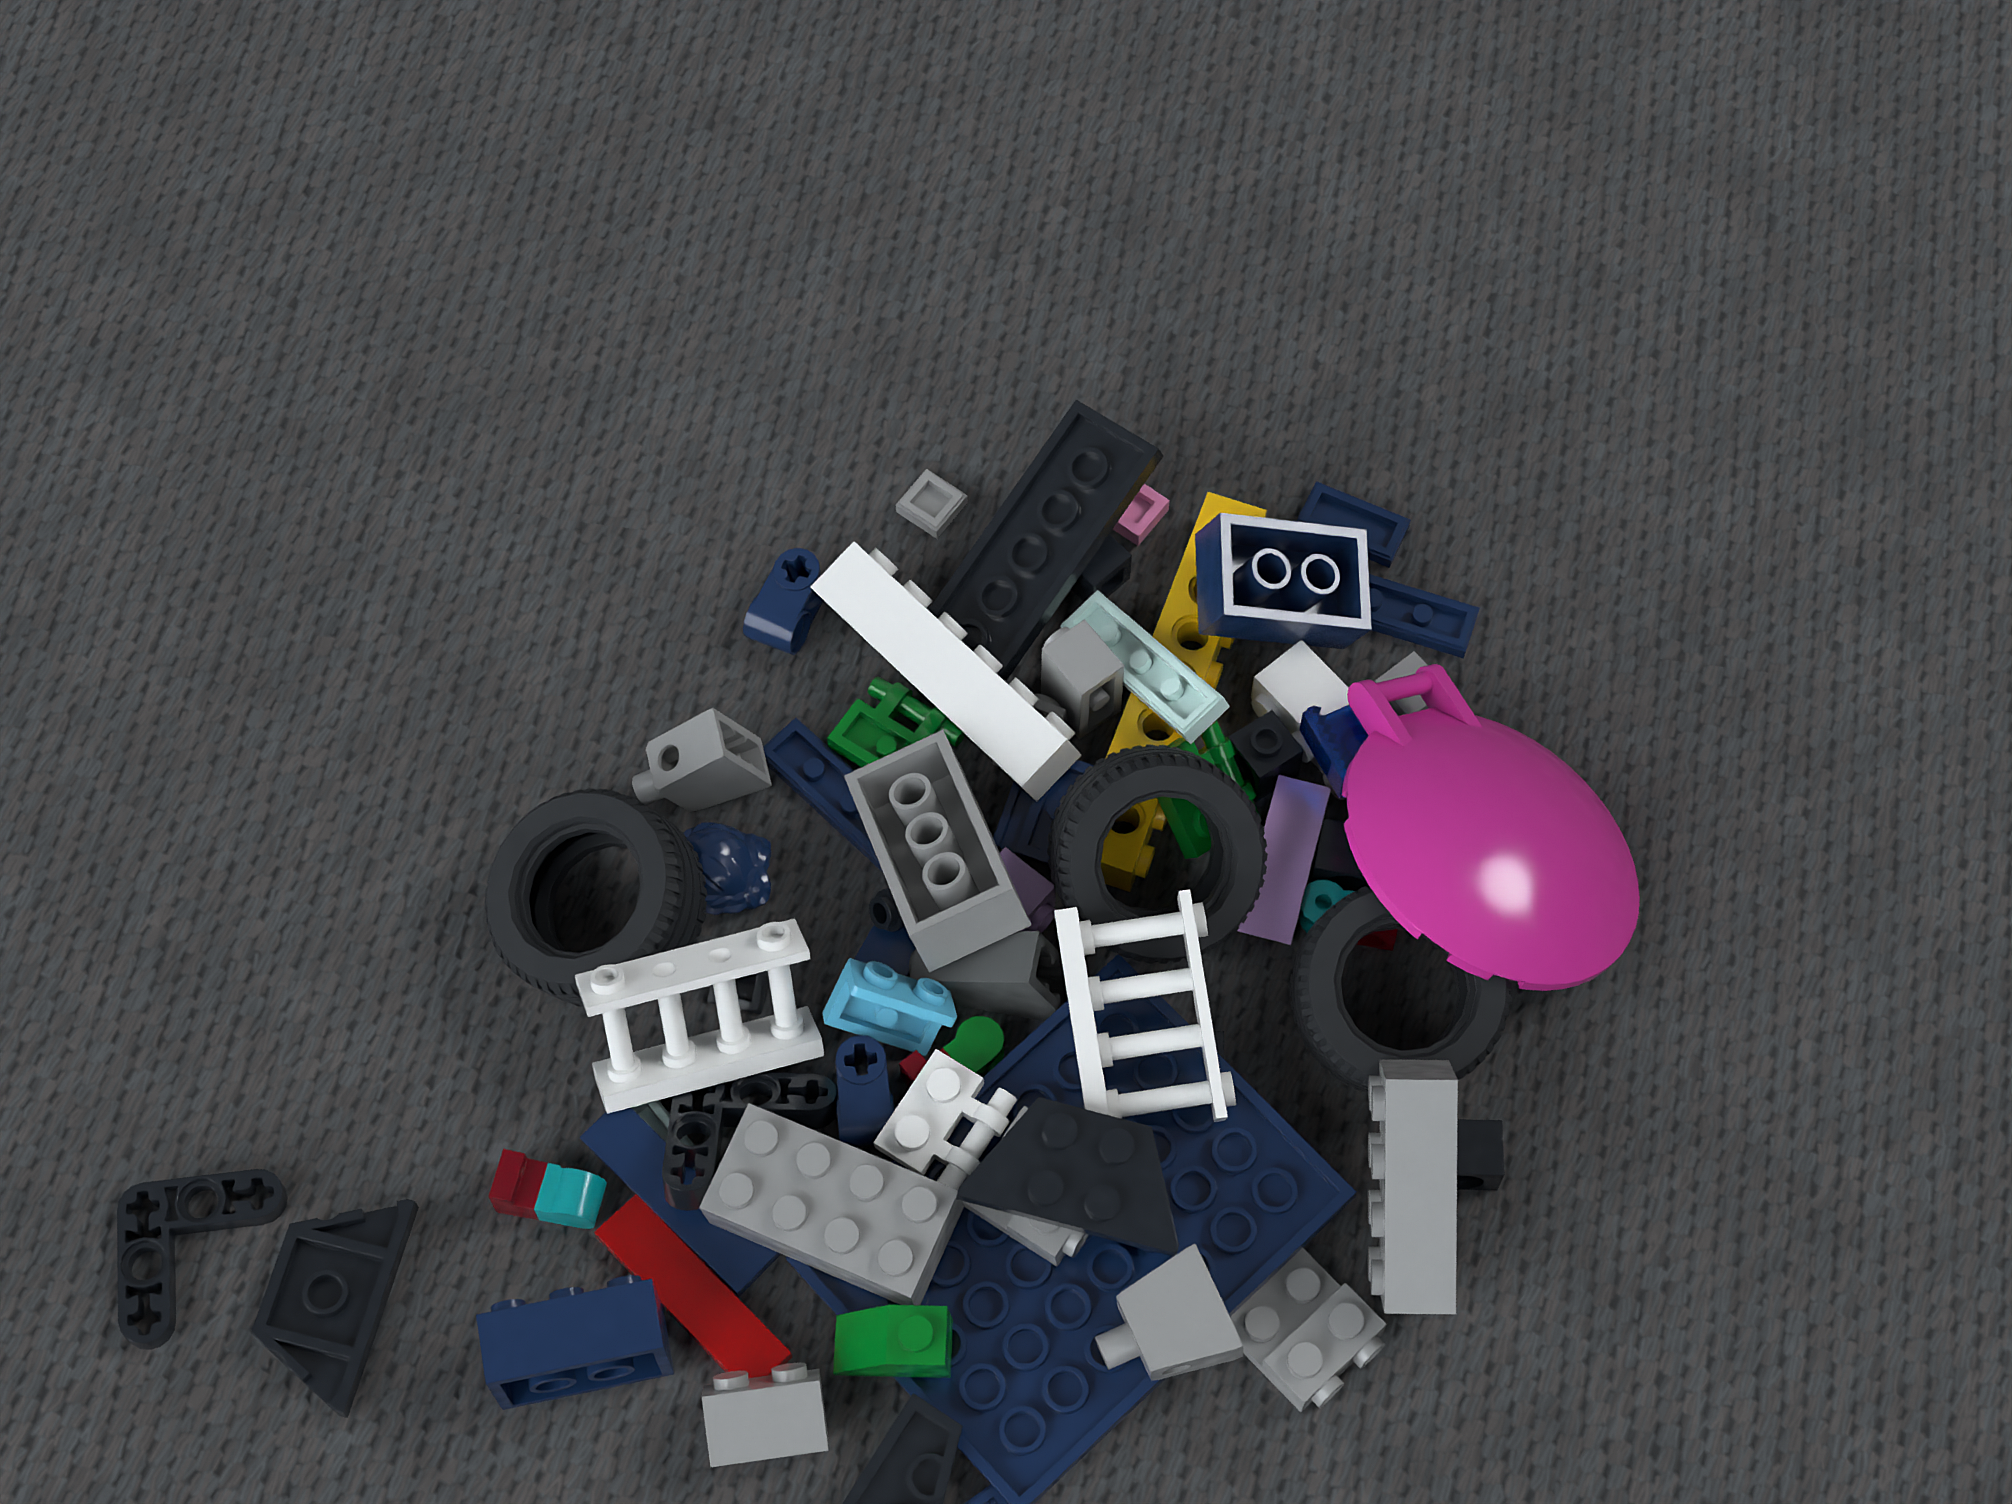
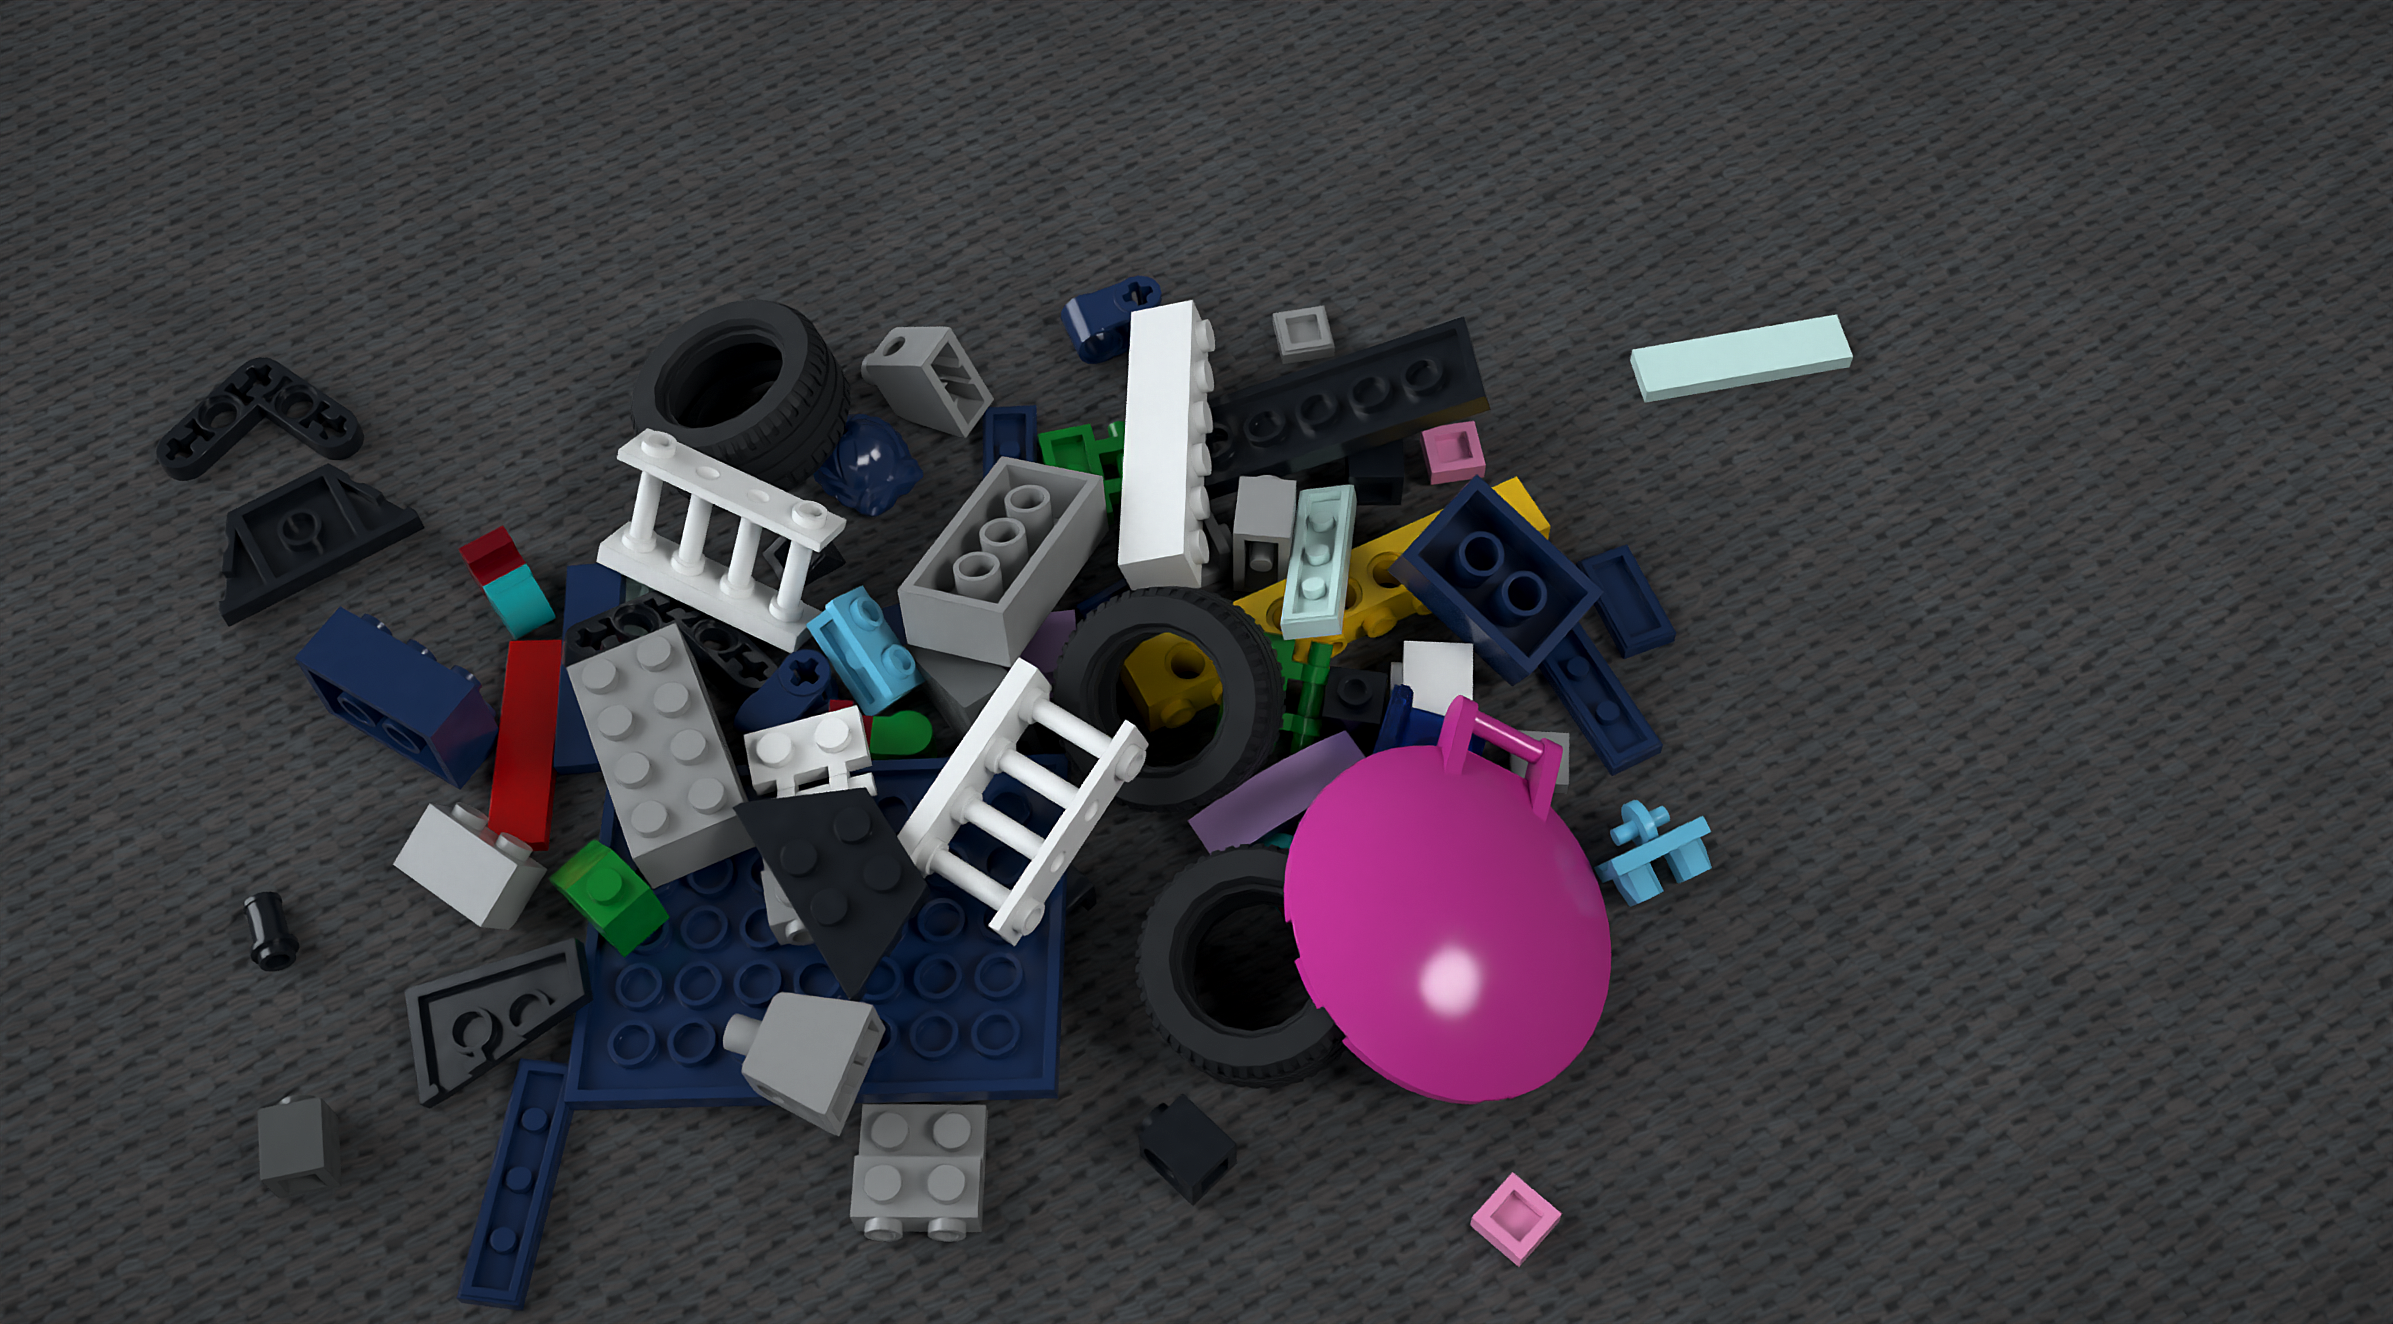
camera: 45 degrees right, 5 degrees down
(1253, 279) = (1741, 358): none -> light aqua tile
(1417, 1186) = (1090, 1118): light grey brick -> none
(1541, 686) = (1633, 870): none -> medium azure hips
(1706, 1012) = (1515, 1219): none -> bright pink plate

